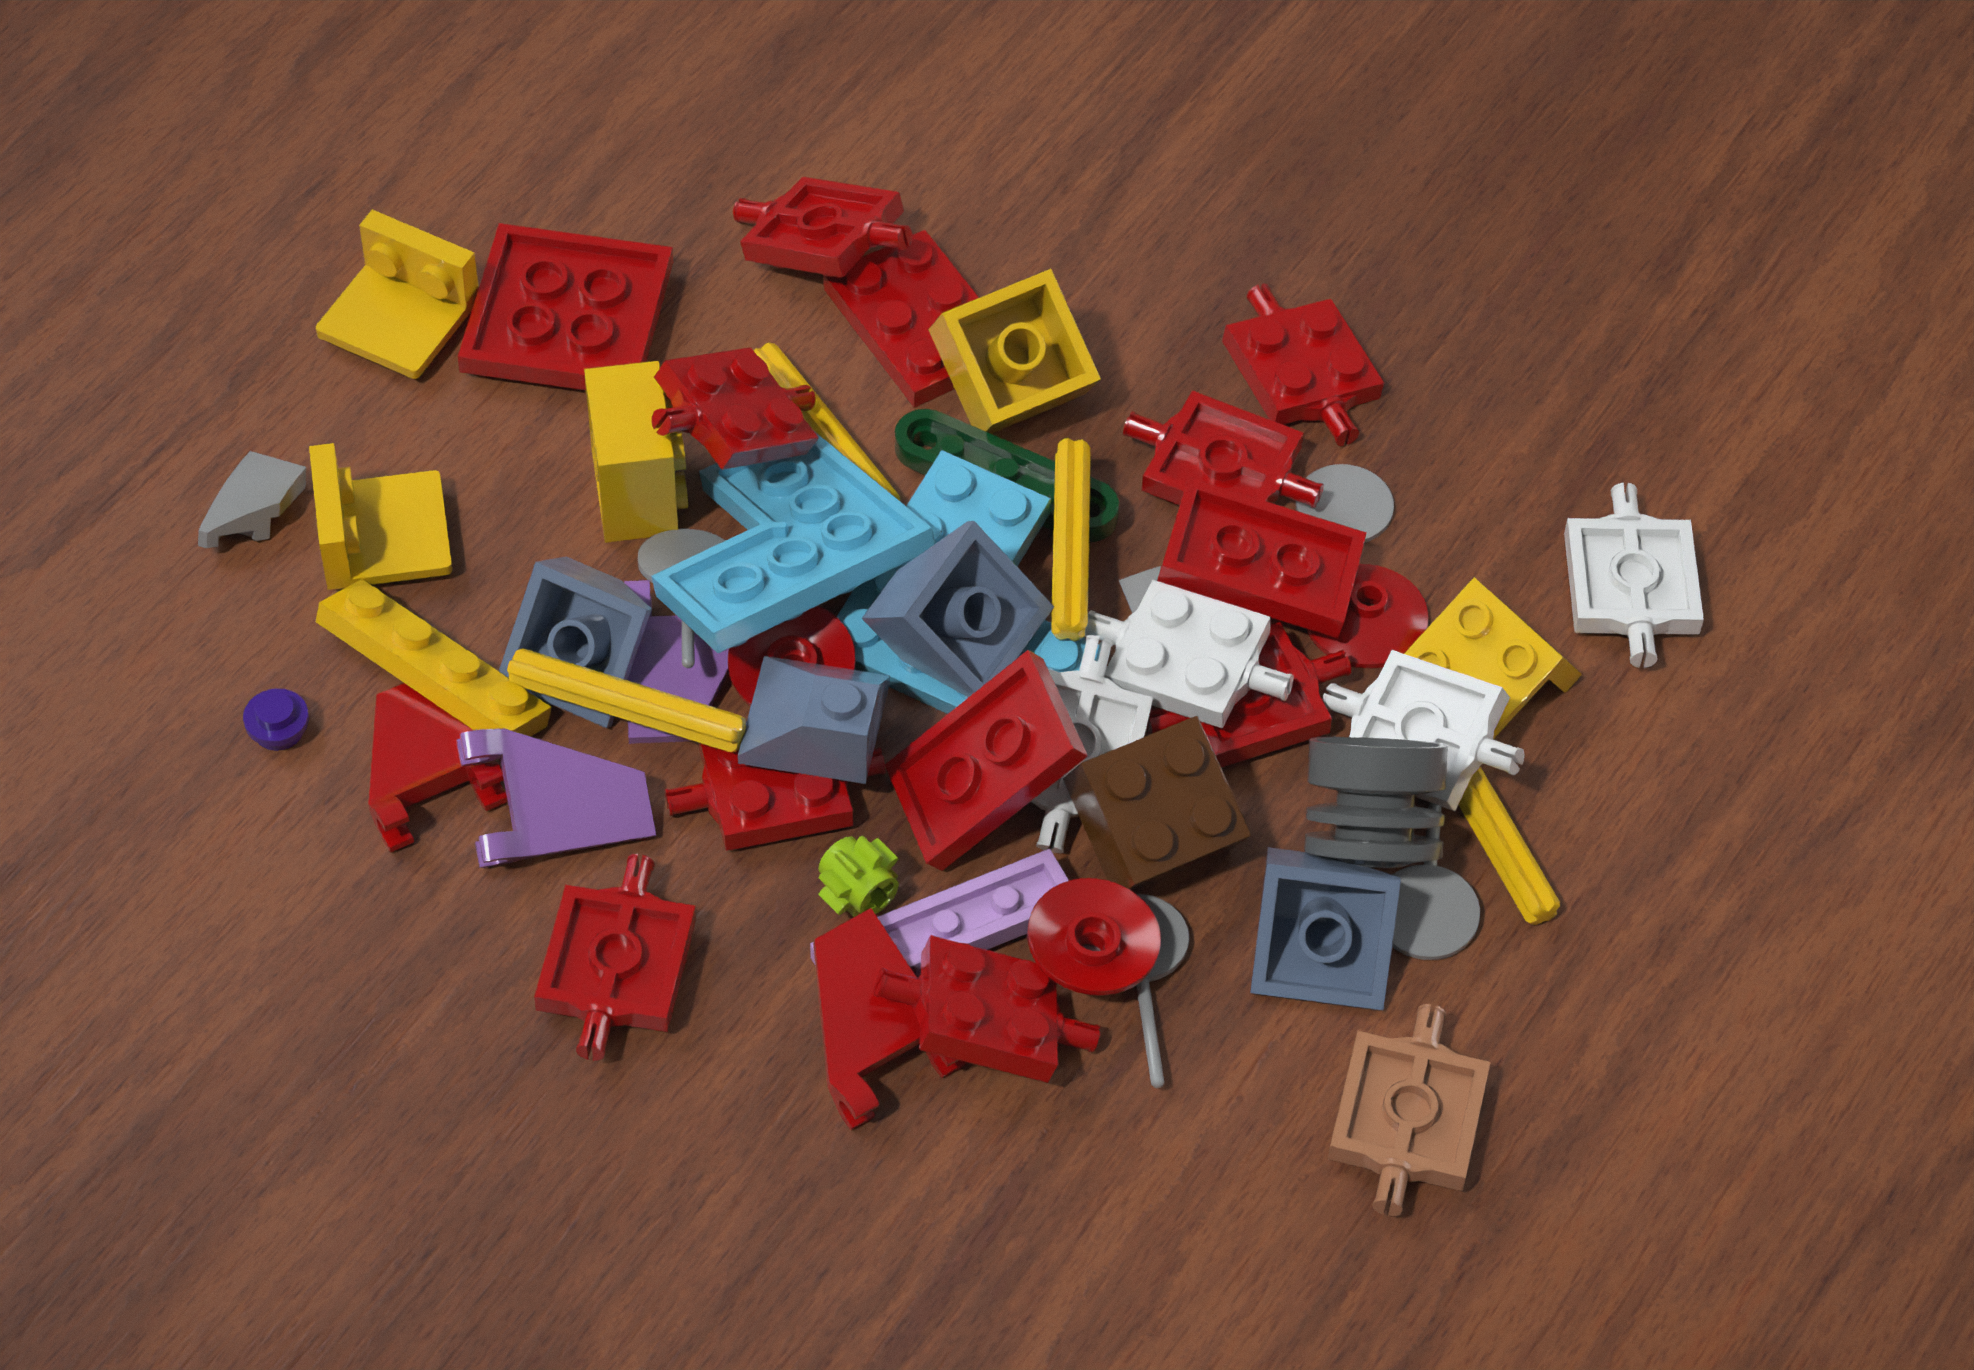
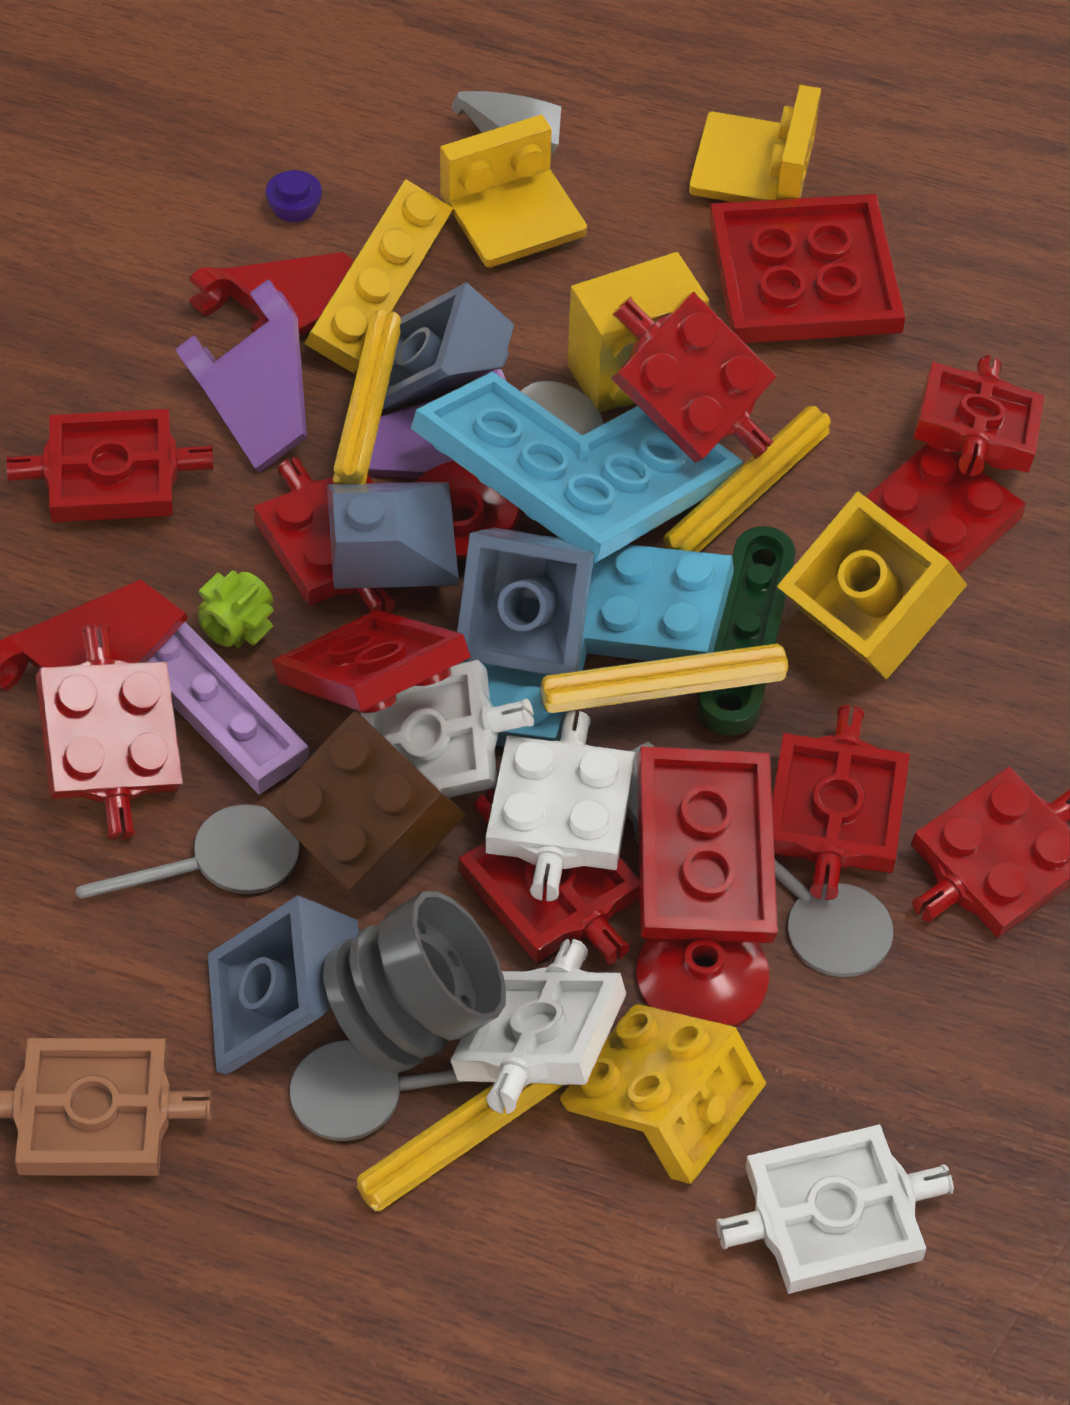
camera: 75 degrees right, 0 degrees up
(1097, 915) = (205, 772): red dish -> none

